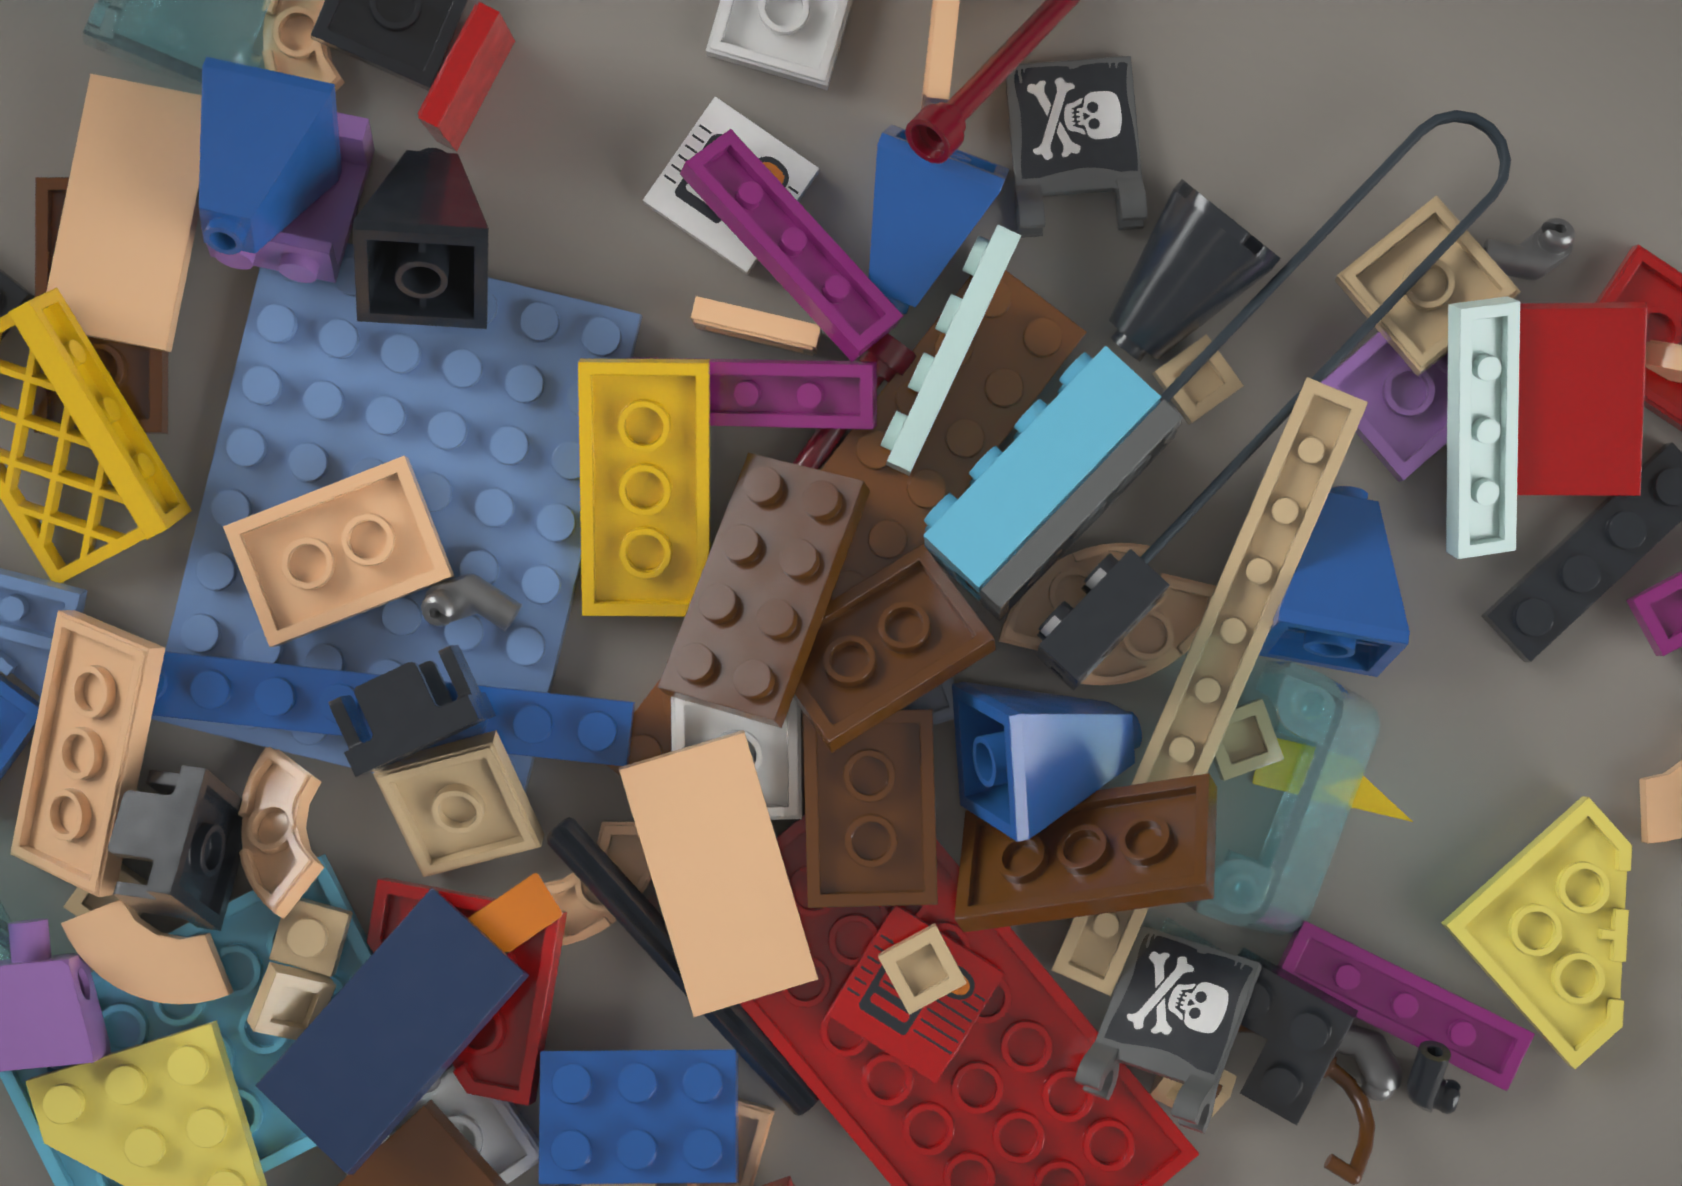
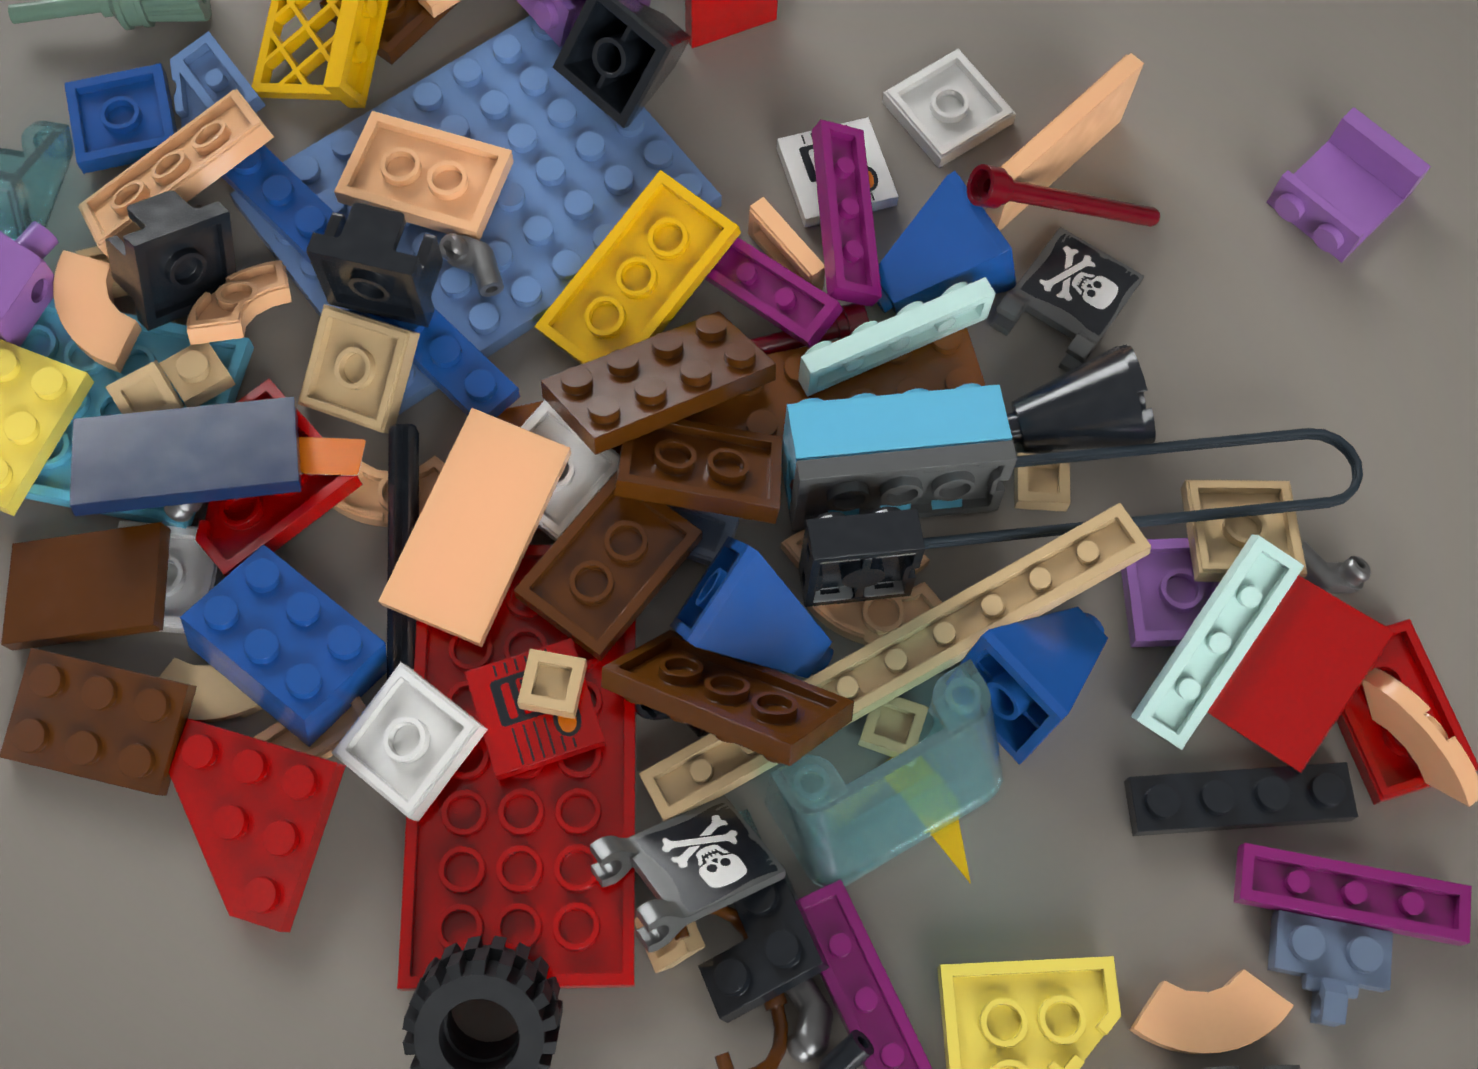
camera: 35 degrees right, 20 degrees down
(830, 1112) = (409, 742): none -> white tile

